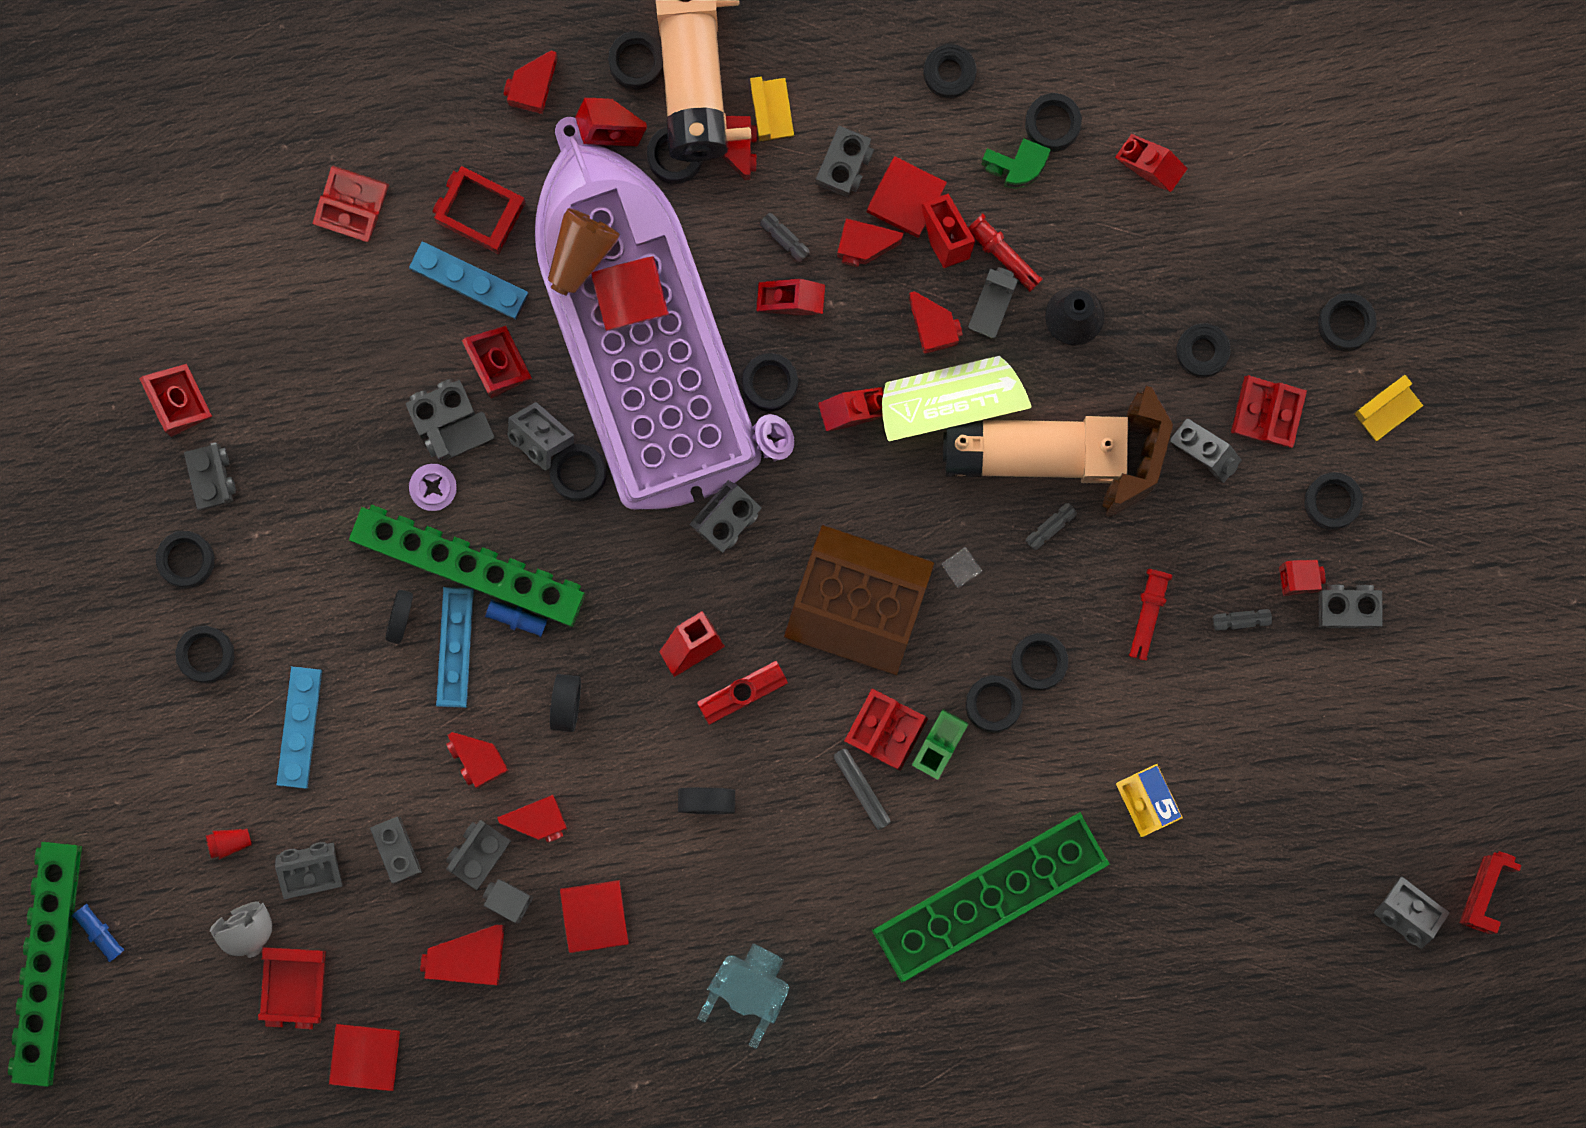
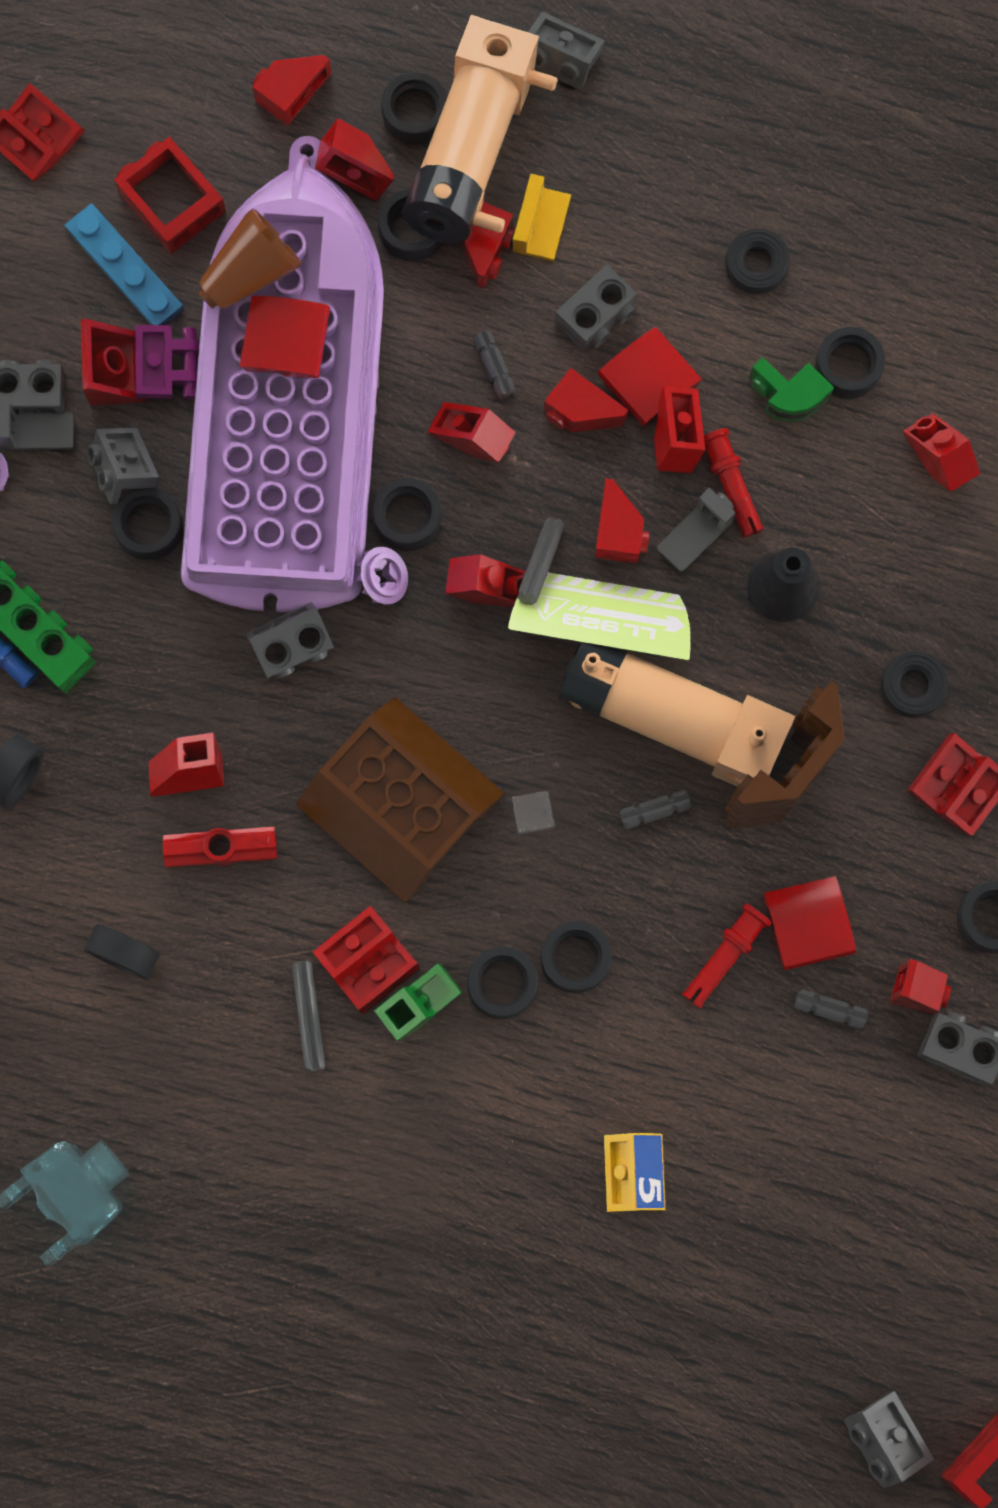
camera: 20 degrees right, 5 degrees down
(527, 345) = (154, 361): none -> magenta plate
(887, 376) = (541, 560): none -> dark grey axle
(990, 897) = (401, 1205): green tile -> none
(1200, 563) = (810, 923): none -> red slope
(1207, 448) = (873, 796): dark grey bracket -> none

